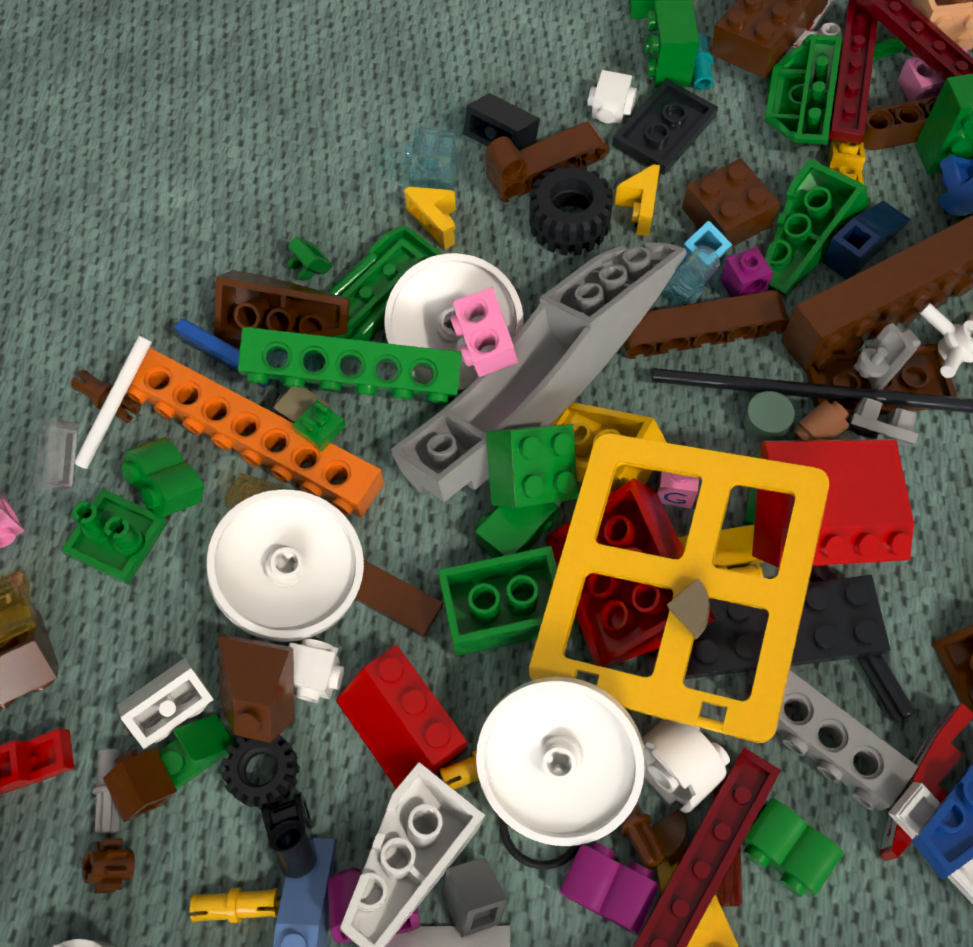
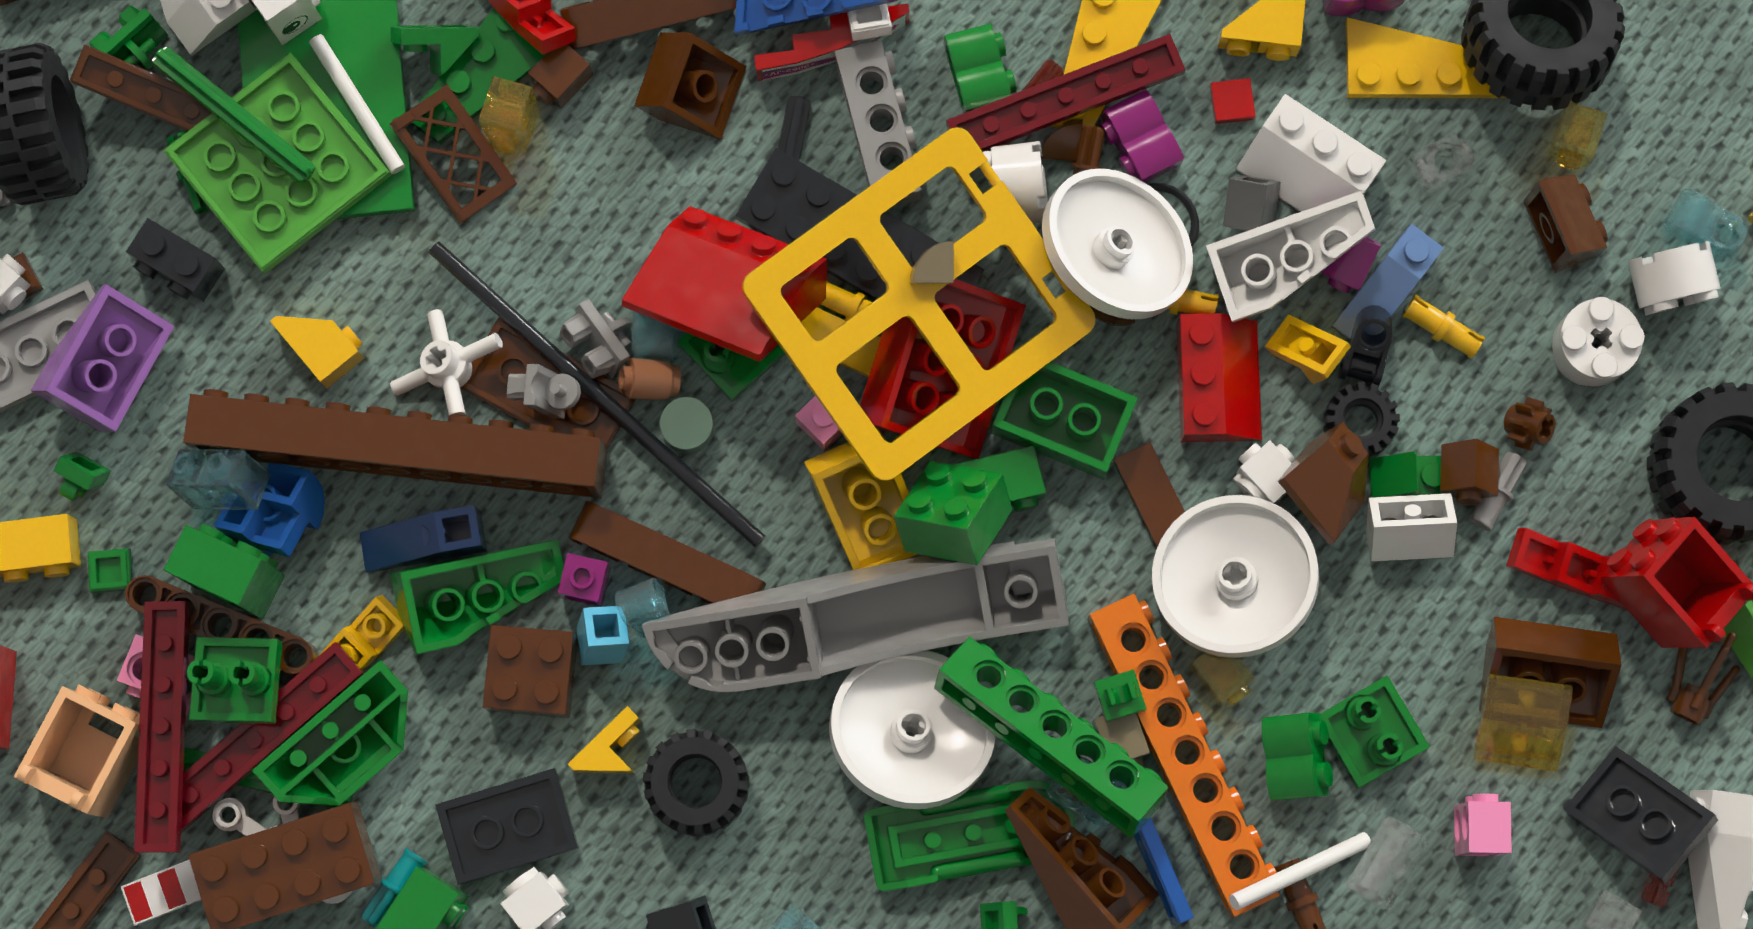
camera: 145 degrees left, 15 degrees up
(341, 795) = (1307, 348): none -> yellow slope
(432, 211) = (839, 897): yellow slope -> none
(487, 331) = (891, 671): bright pink brick -> none
(515, 170) = (668, 868): reddish brown beam -> none
(902, 72) = (235, 680): none -> green plate

